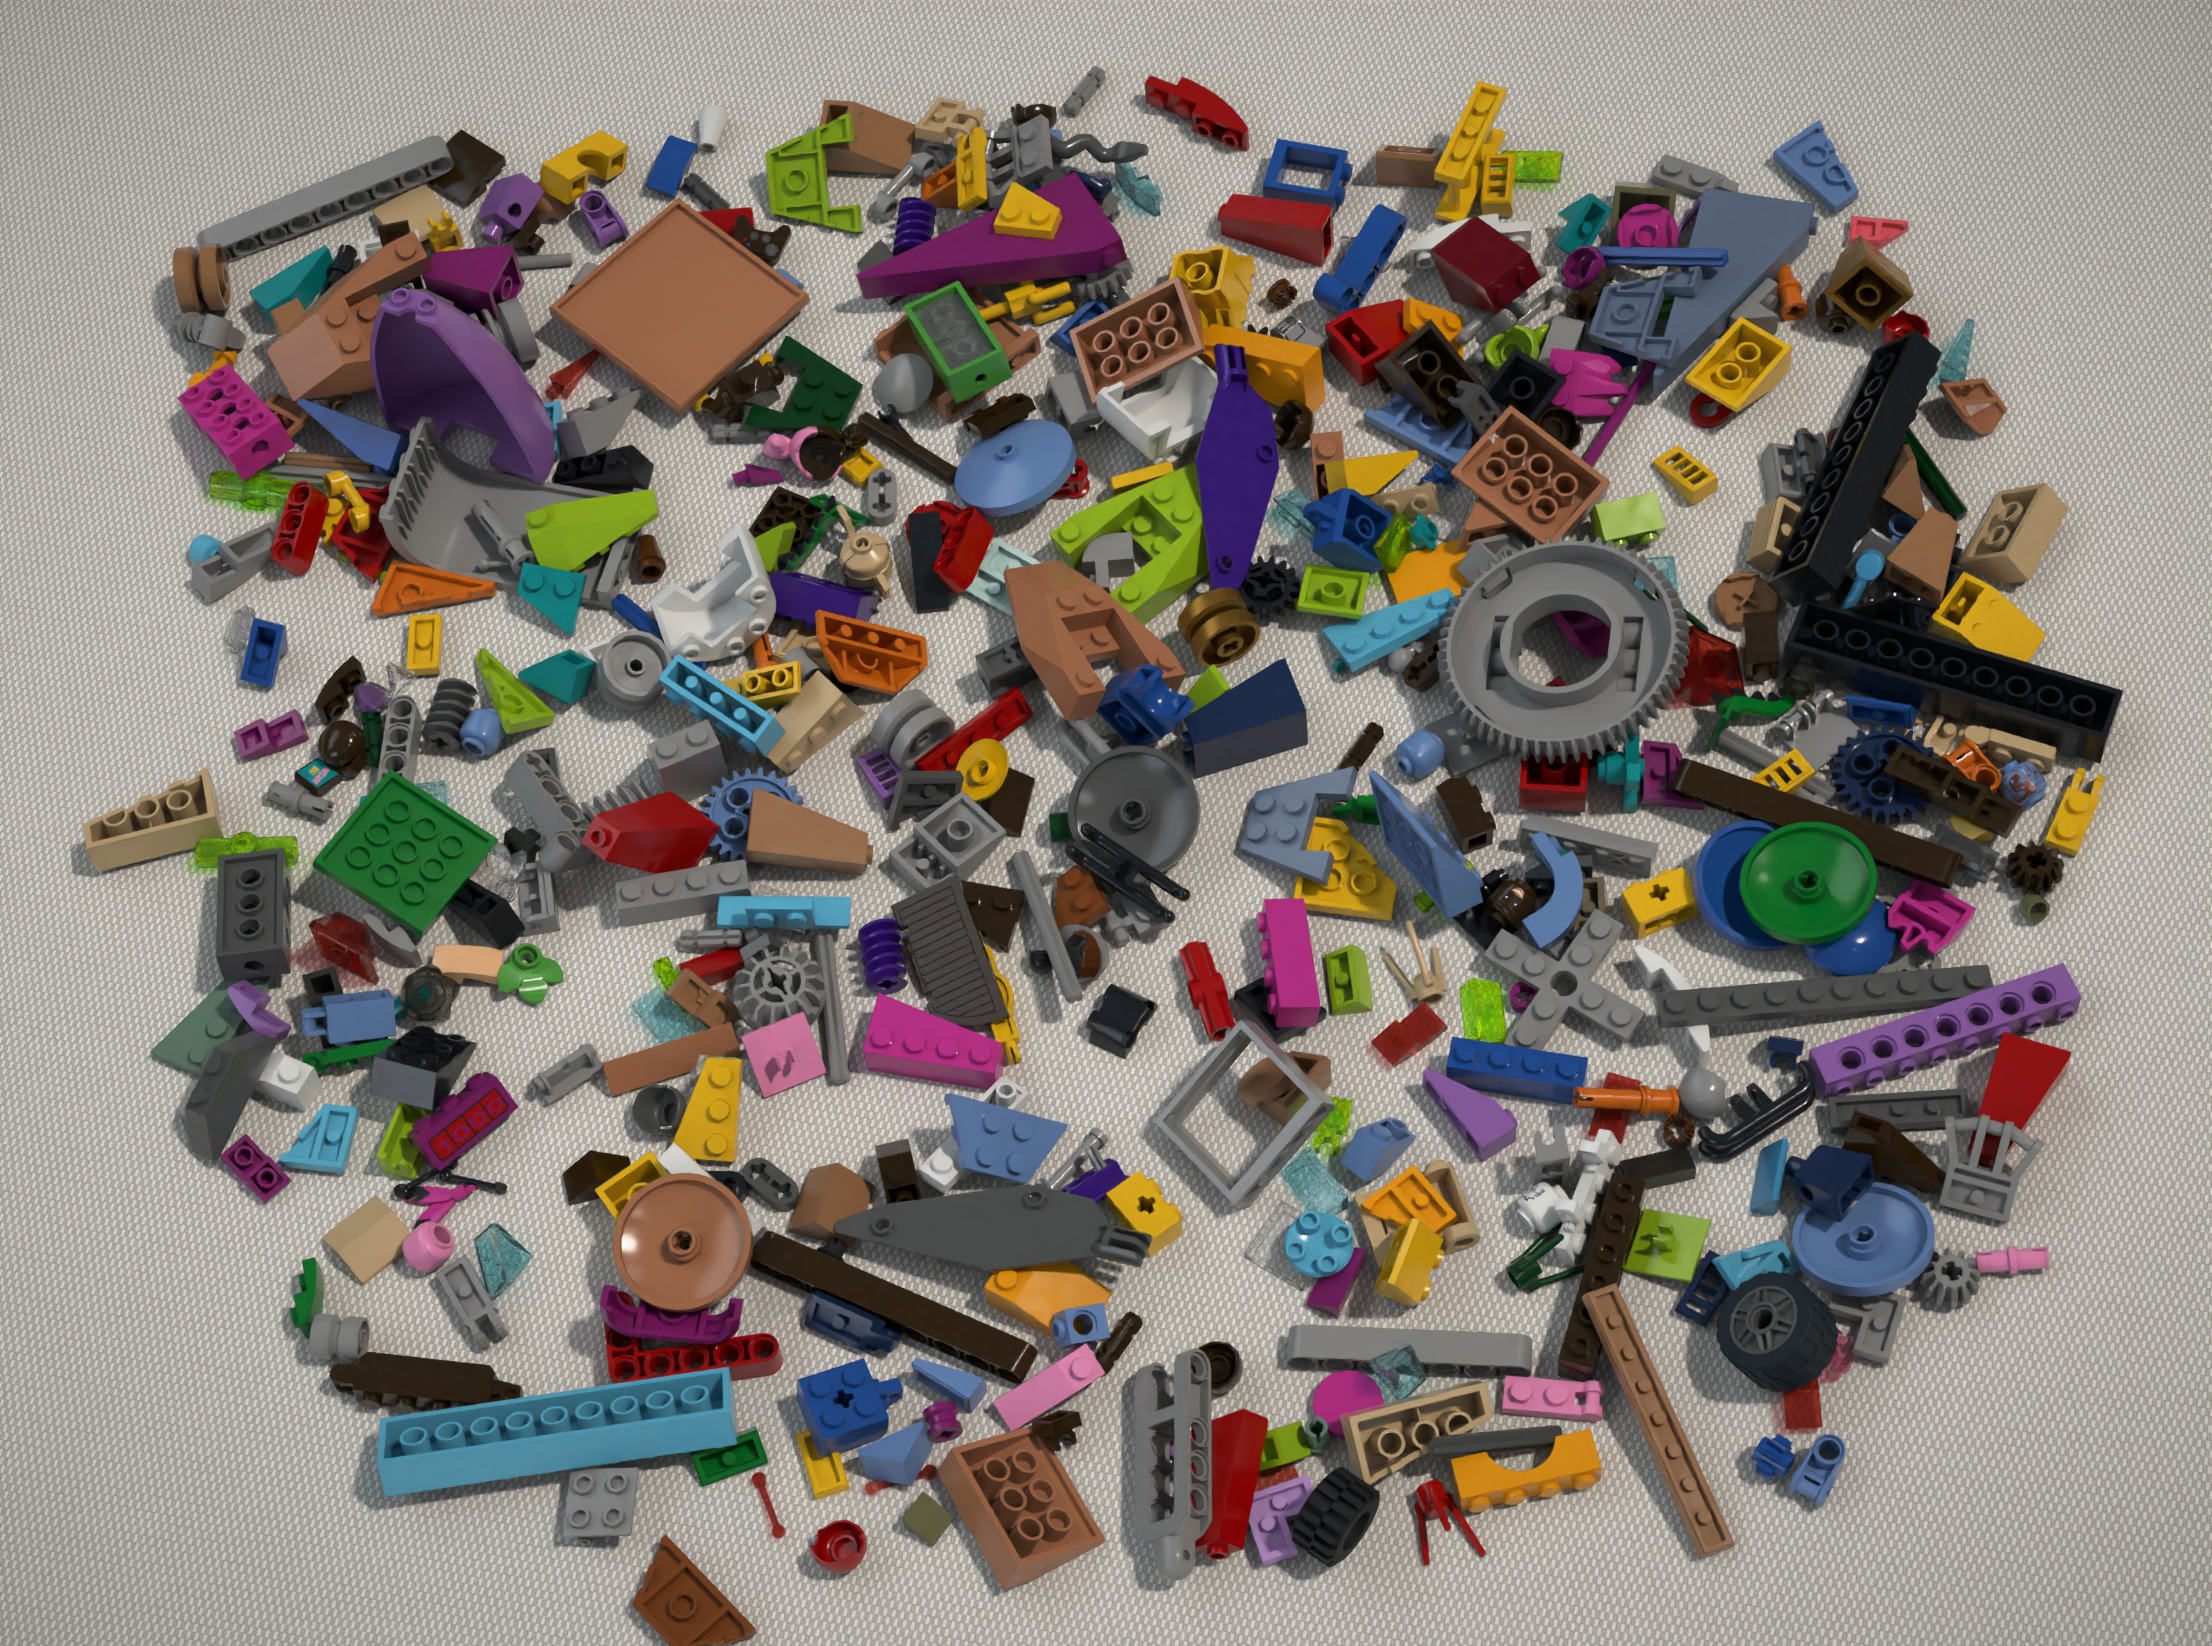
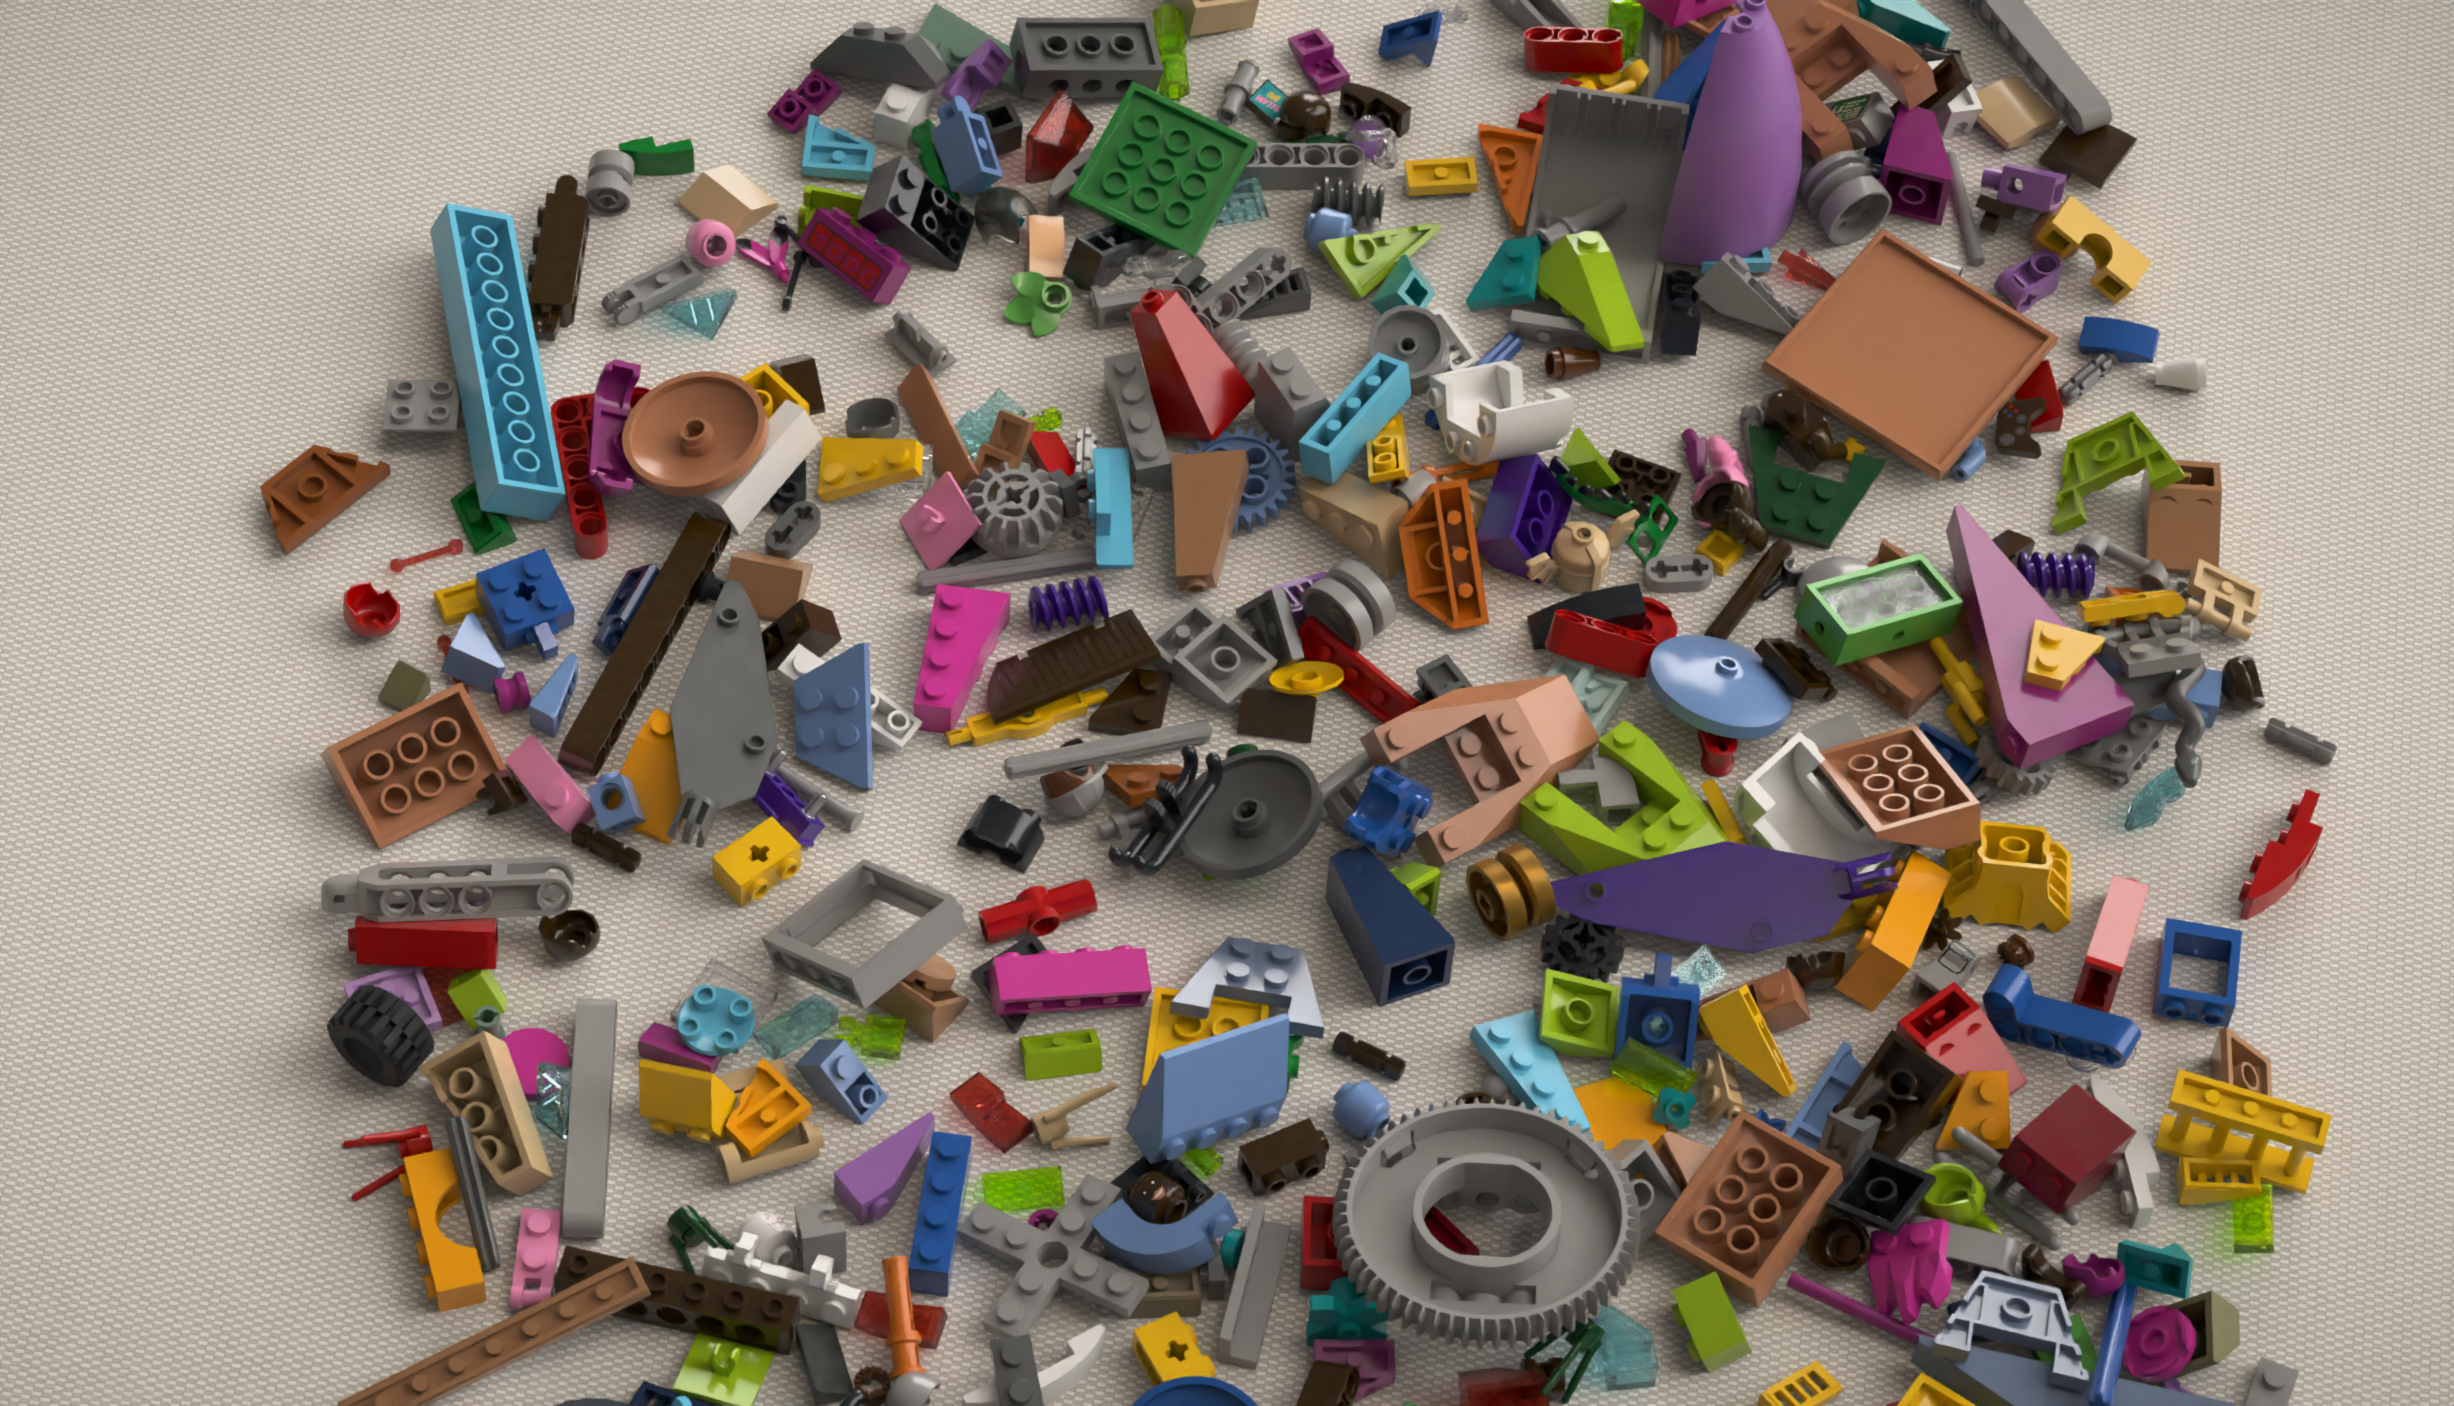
camera: 75 degrees right, 5 degrees down
(444, 234) = (1981, 137): yellow plate -> none
(1096, 187) = (2133, 728): dark blue arm -> none

